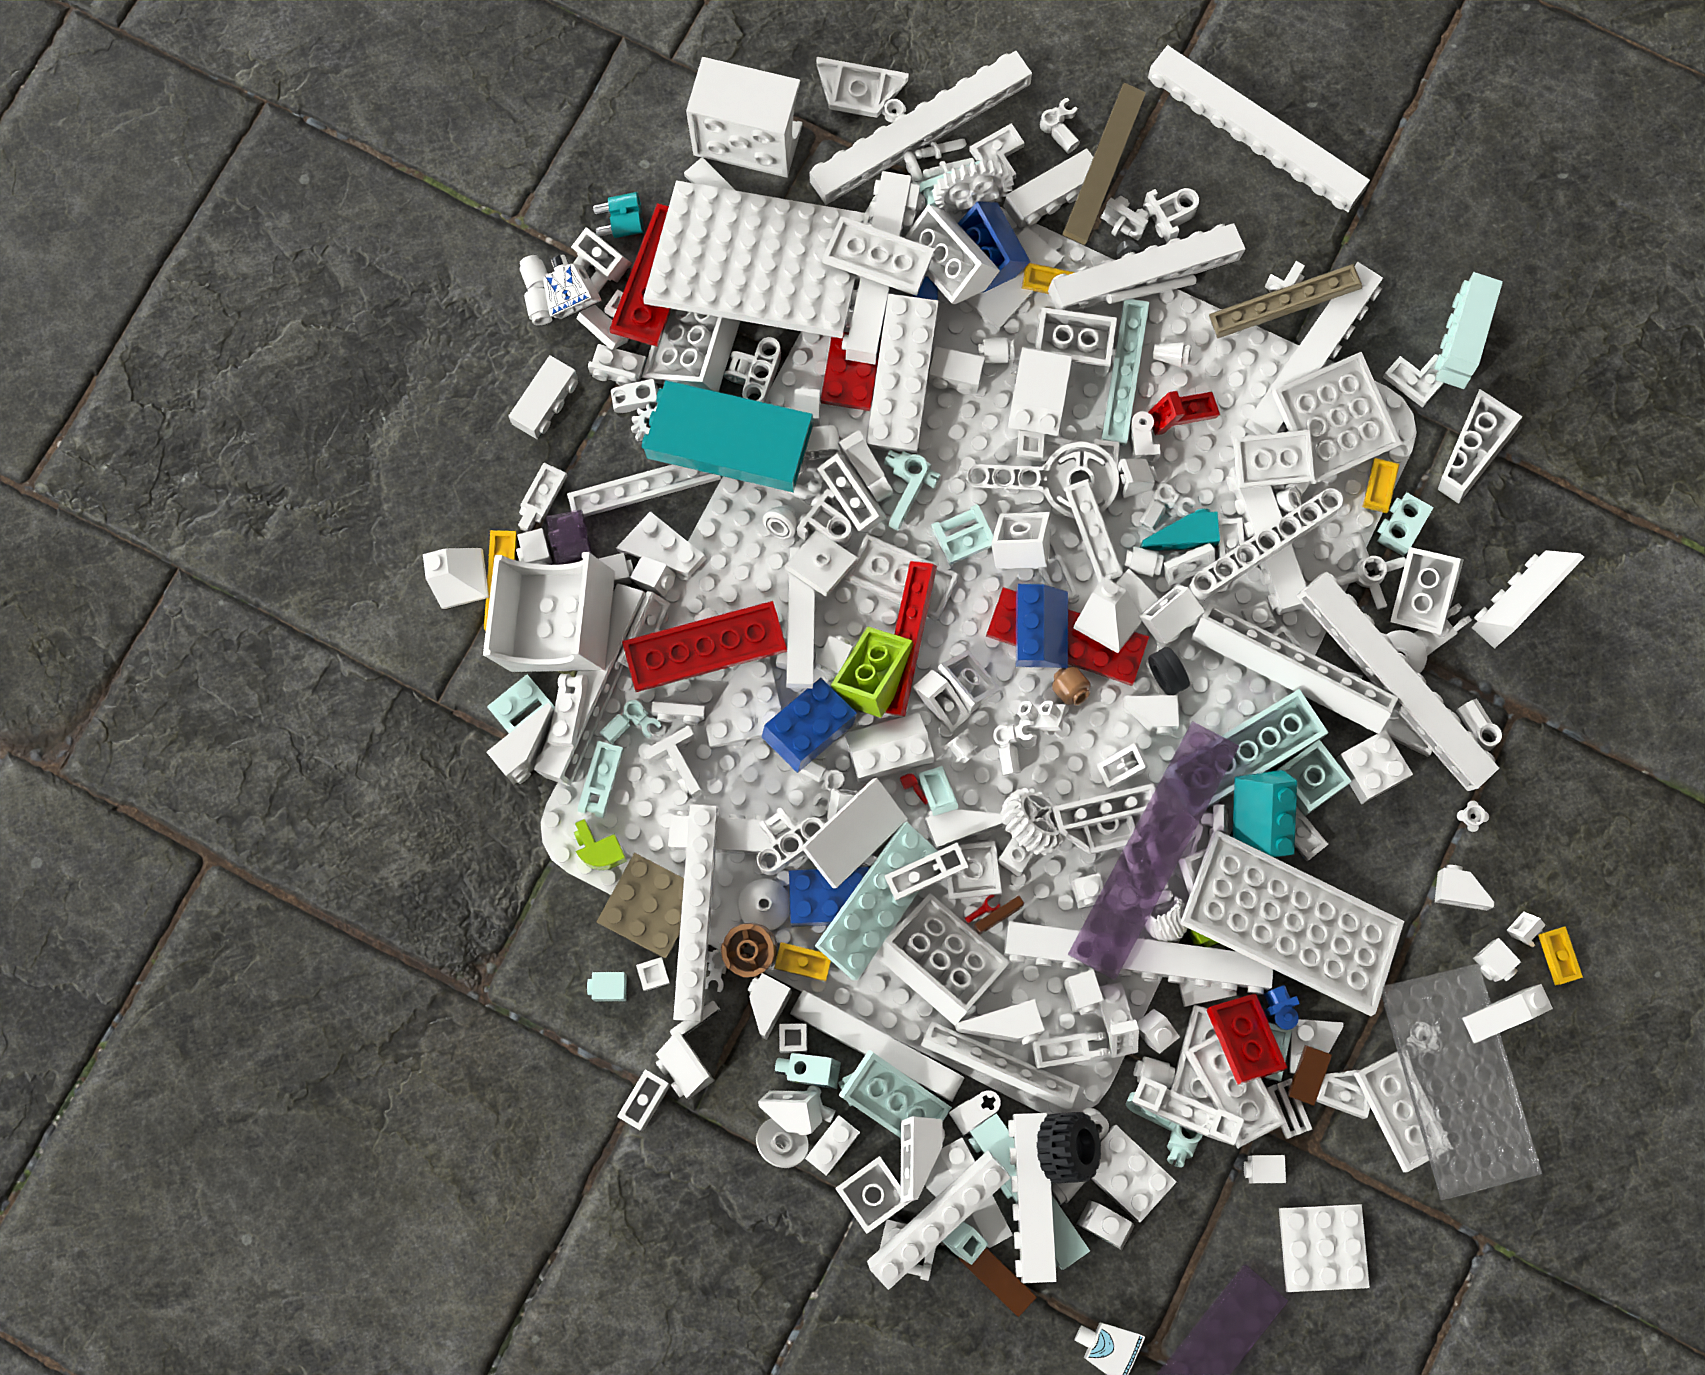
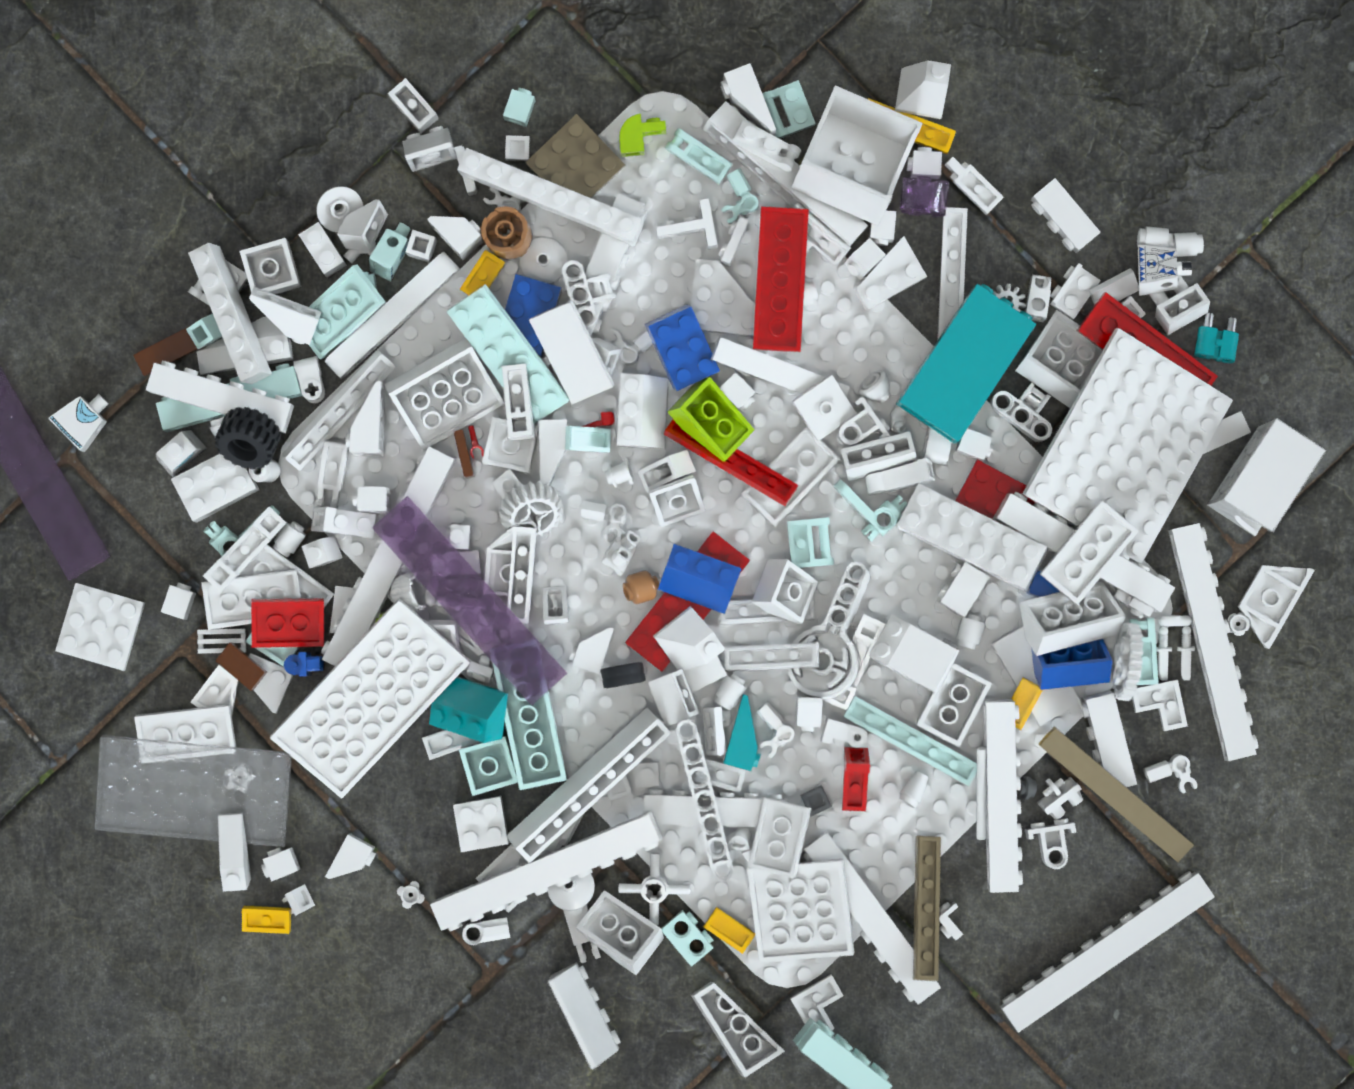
camera: 105 degrees right, 10 degrees up
(1218, 444) = (816, 800): none -> dark grey tile

